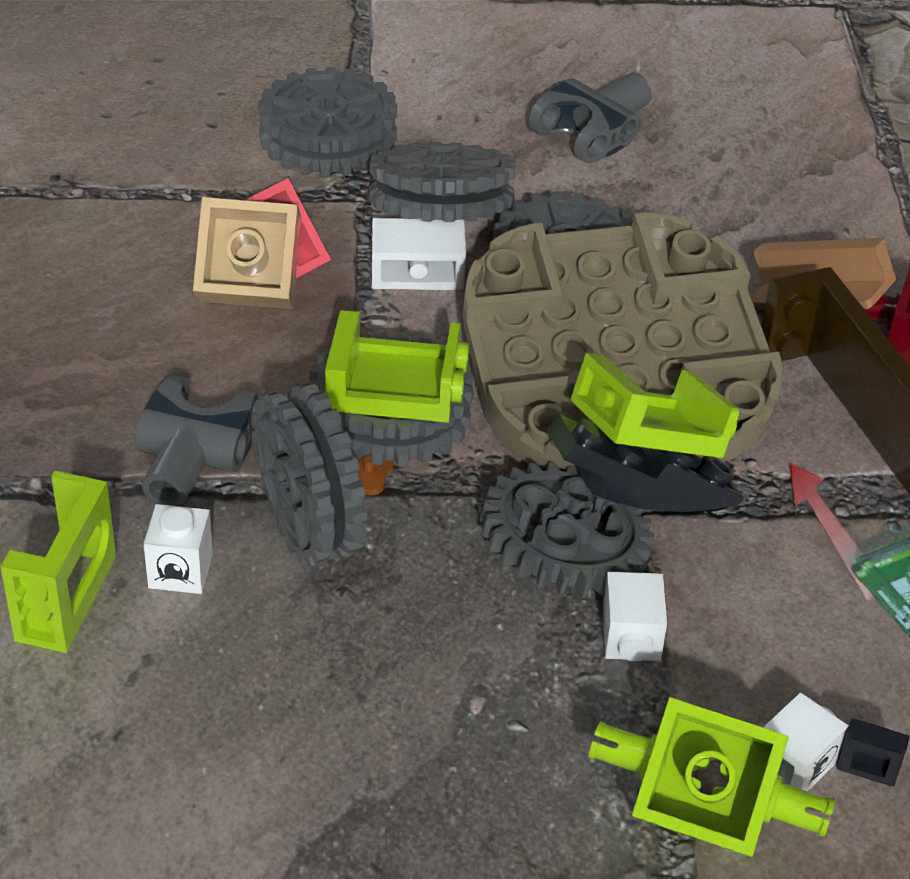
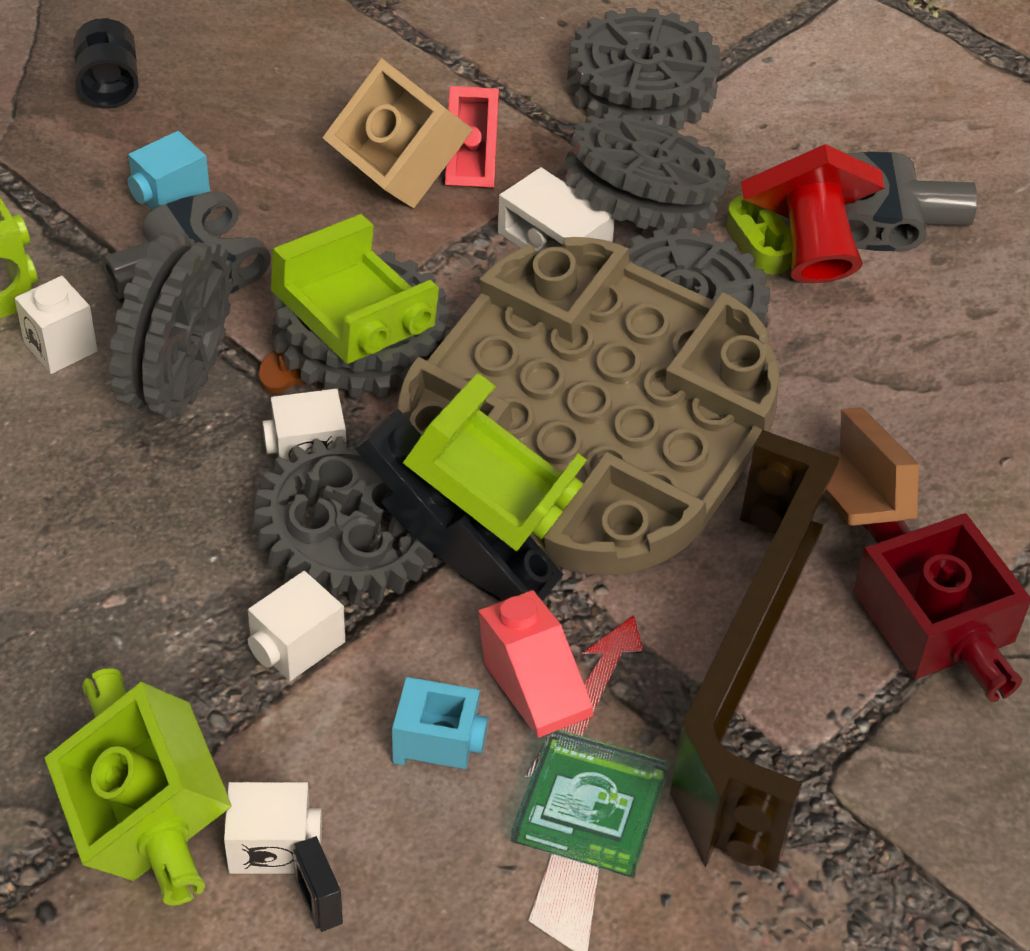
camera: 45 degrees right, 5 degrees up
(98, 392) = (167, 171): none -> medium azure brick
(457, 492) = (301, 419): none -> white brick
(542, 178) = (751, 237): none -> lime beam
(584, 142) = (814, 196): none -> red plant
(798, 606) = (438, 724): none -> medium azure brick
(803, 524) = (533, 663): none -> coral slope

